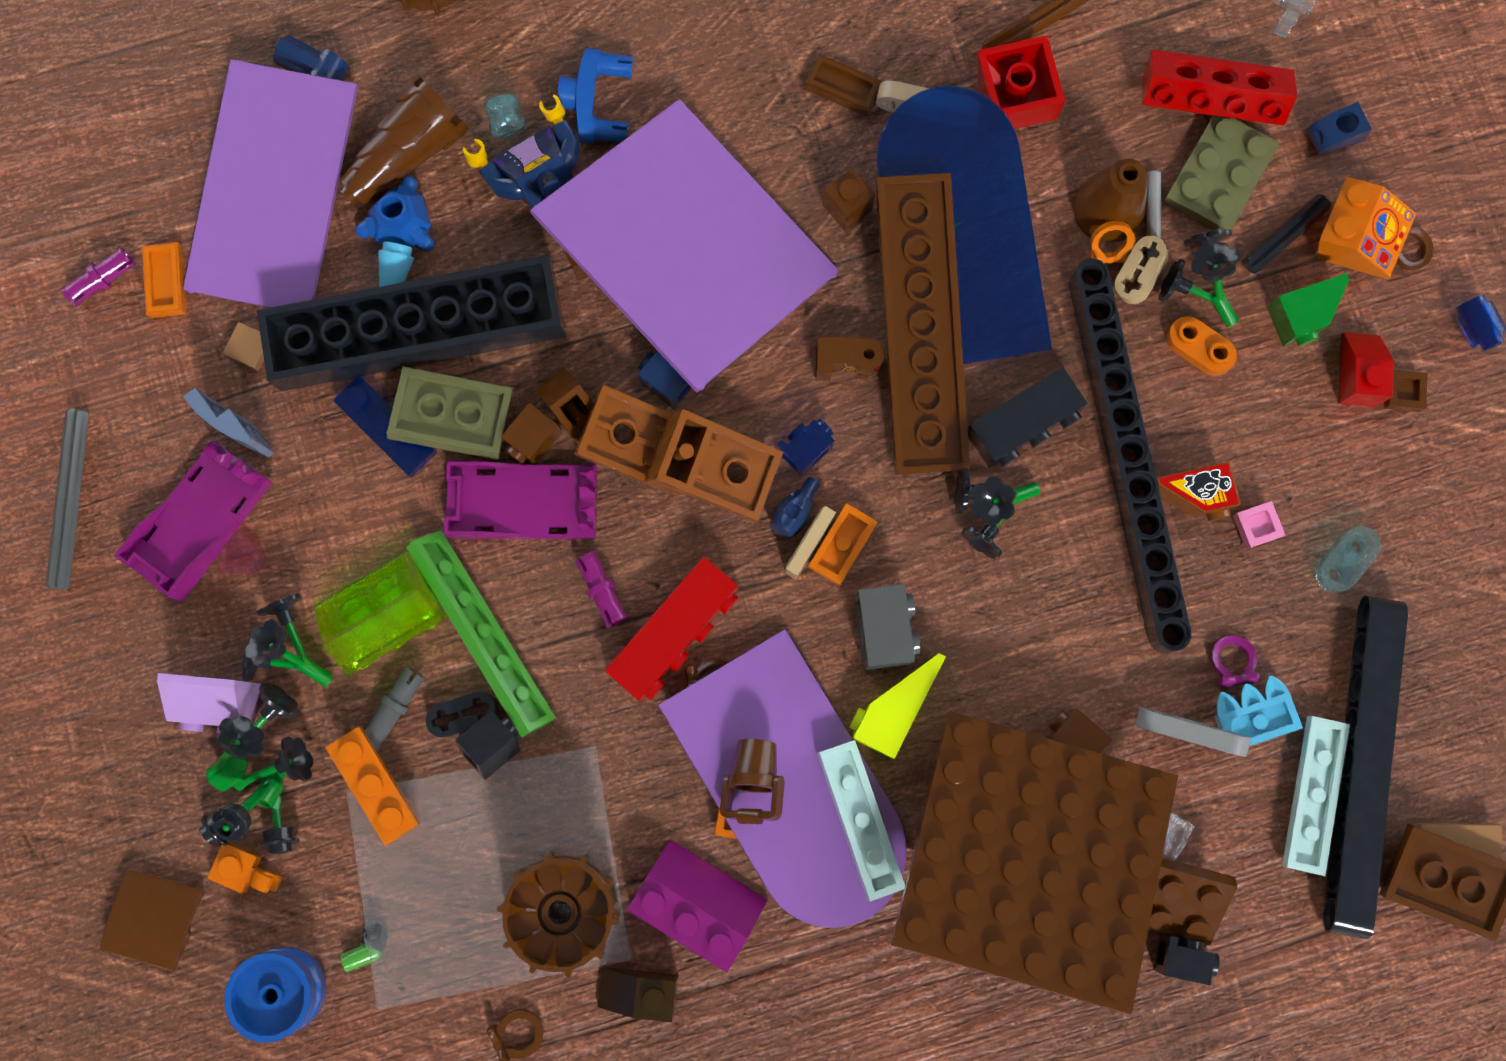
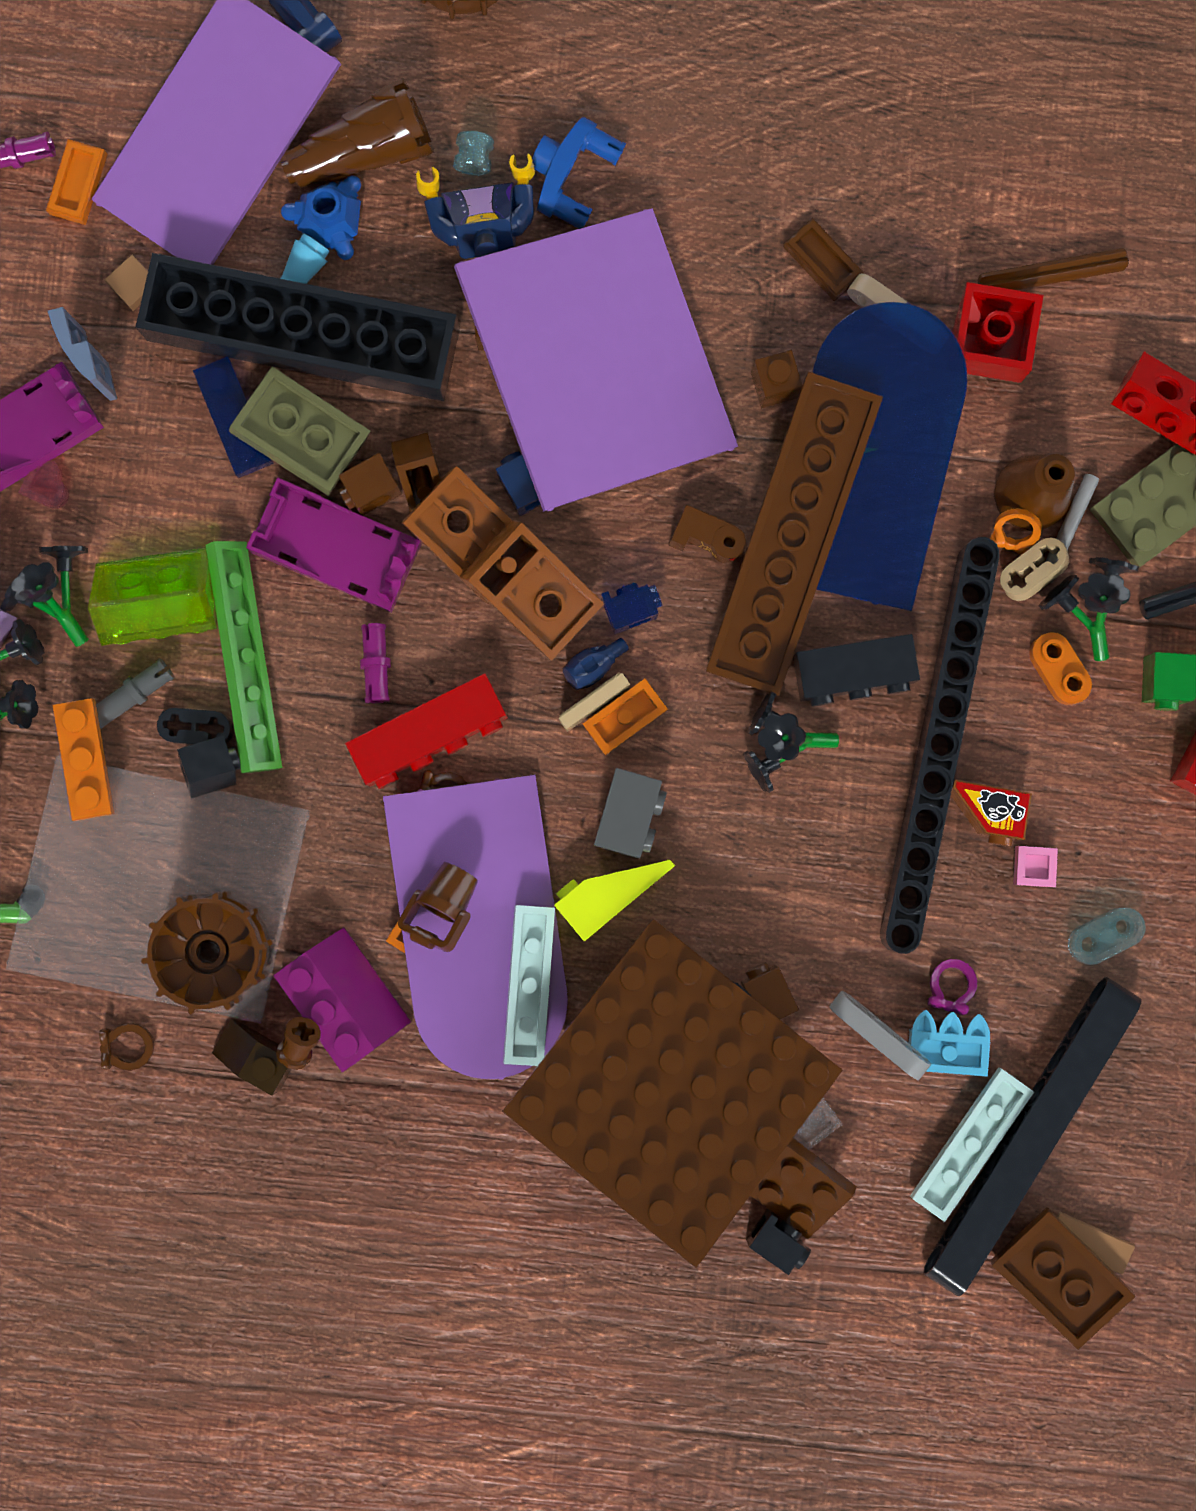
camera: 20 degrees right, 5 degrees up
(676, 954) = (300, 1036): none -> reddish brown bush

